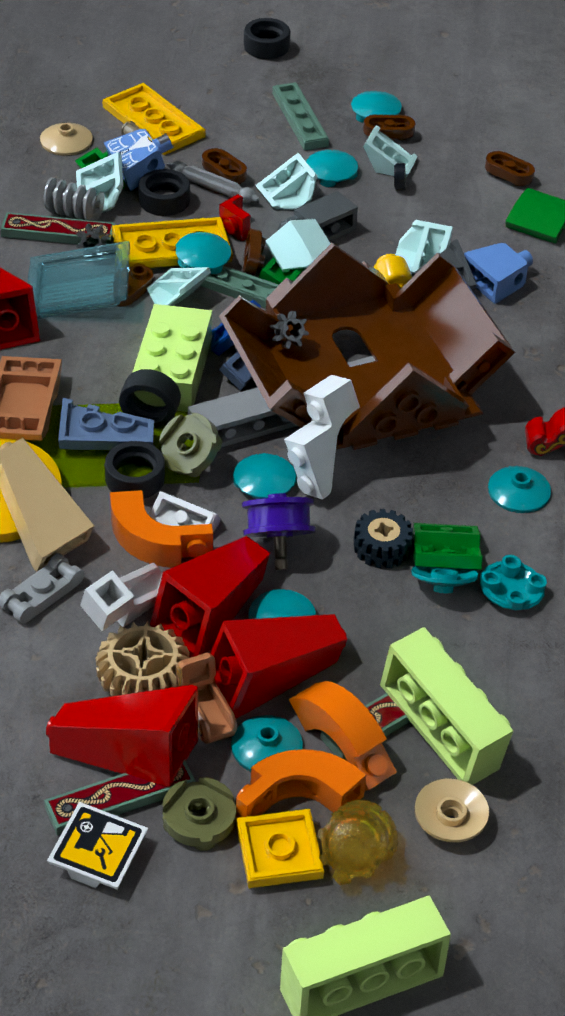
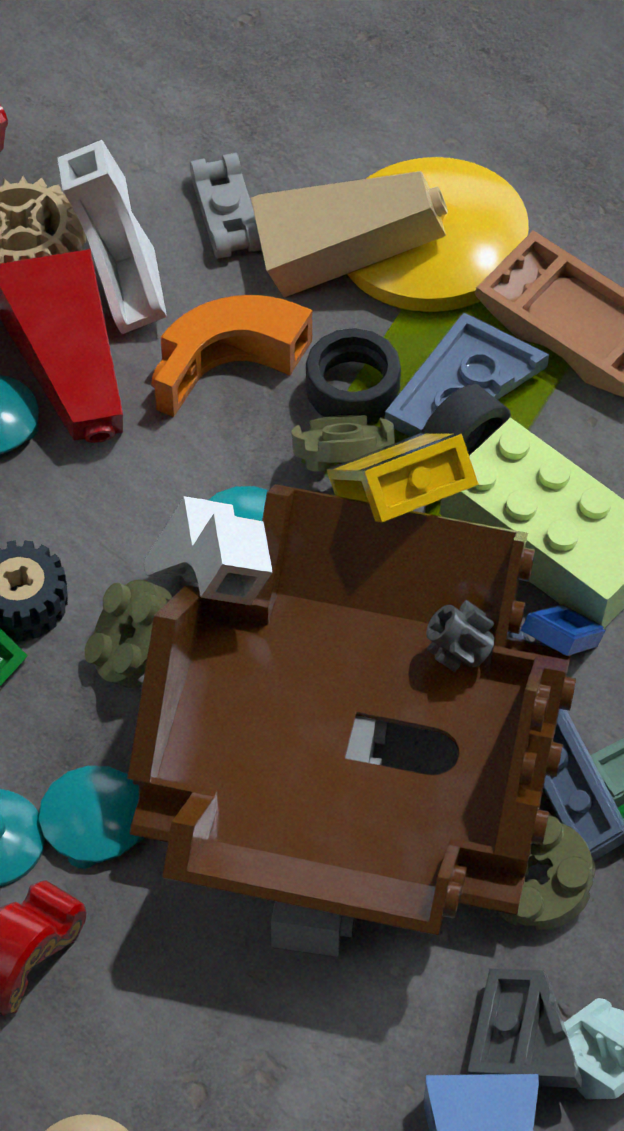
camera: 125 degrees right, 10 degrees up
(178, 512) = (241, 407): white slope -> none
(217, 373) = (406, 474): none -> yellow panel
(279, 519) = (119, 455): dark purple wheel -> none
(391, 466) = (113, 647): none -> olive plate
(394, 269) = (571, 947): yellow head -> none
(474, 454) = (90, 815): none -> teal dish

